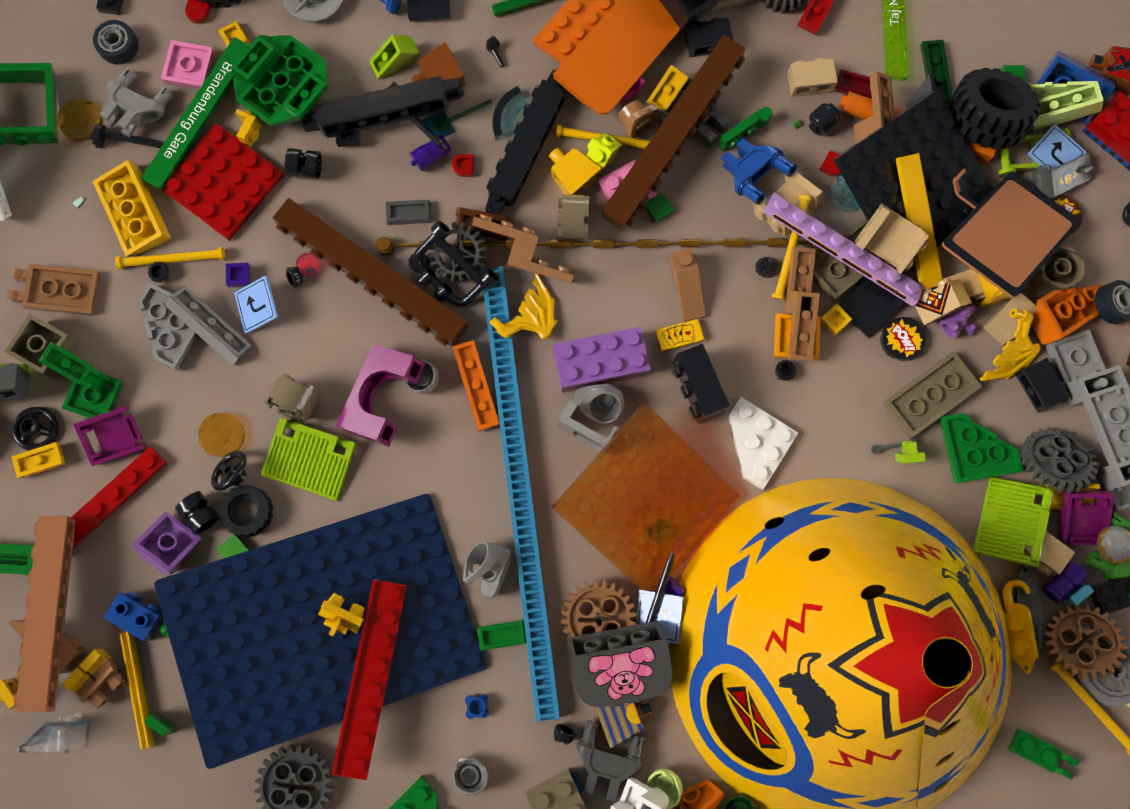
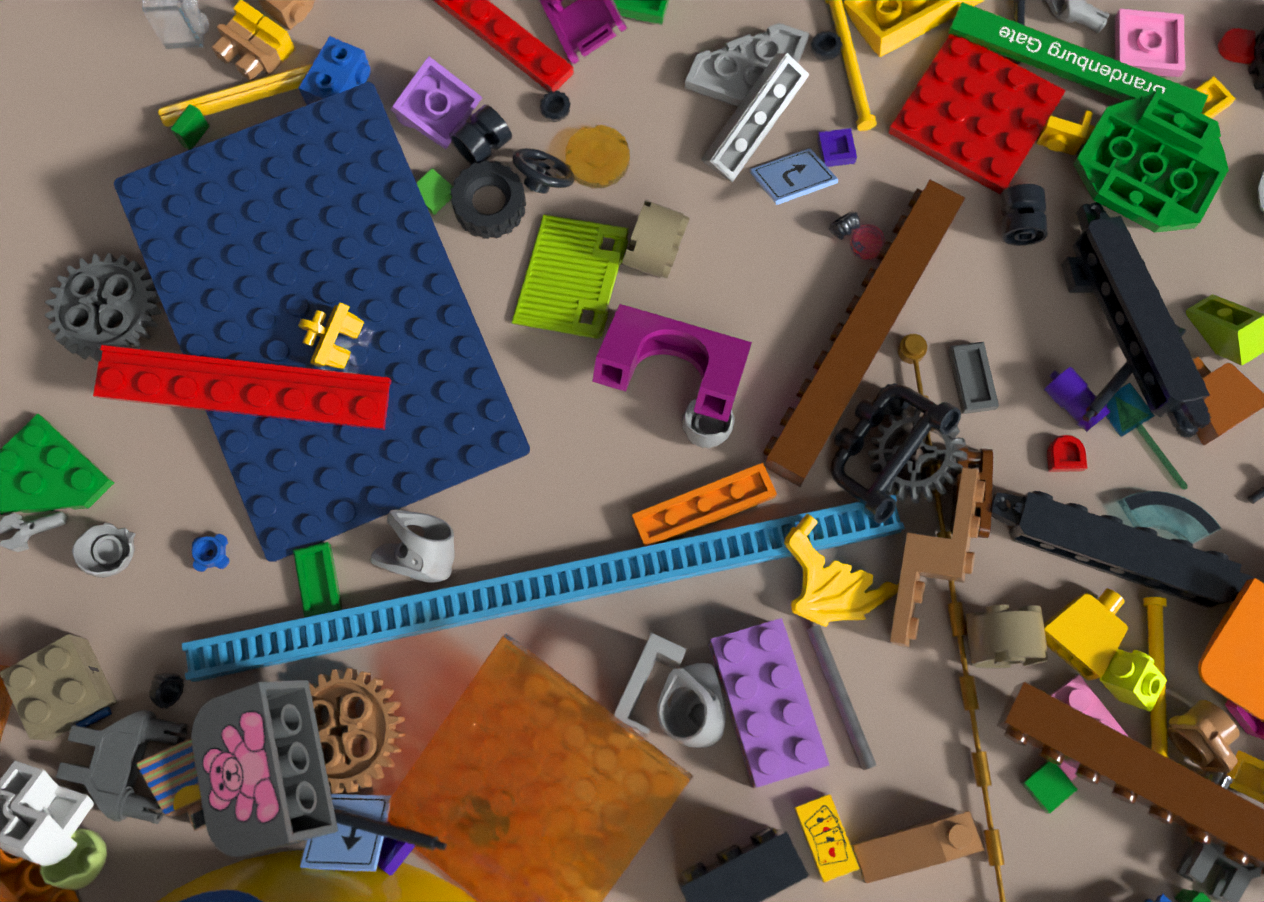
camera: 90 degrees right, 5 degrees down
(179, 460) = (555, 106): none -> black piece
(606, 315) = (841, 697): none -> flat silver bar

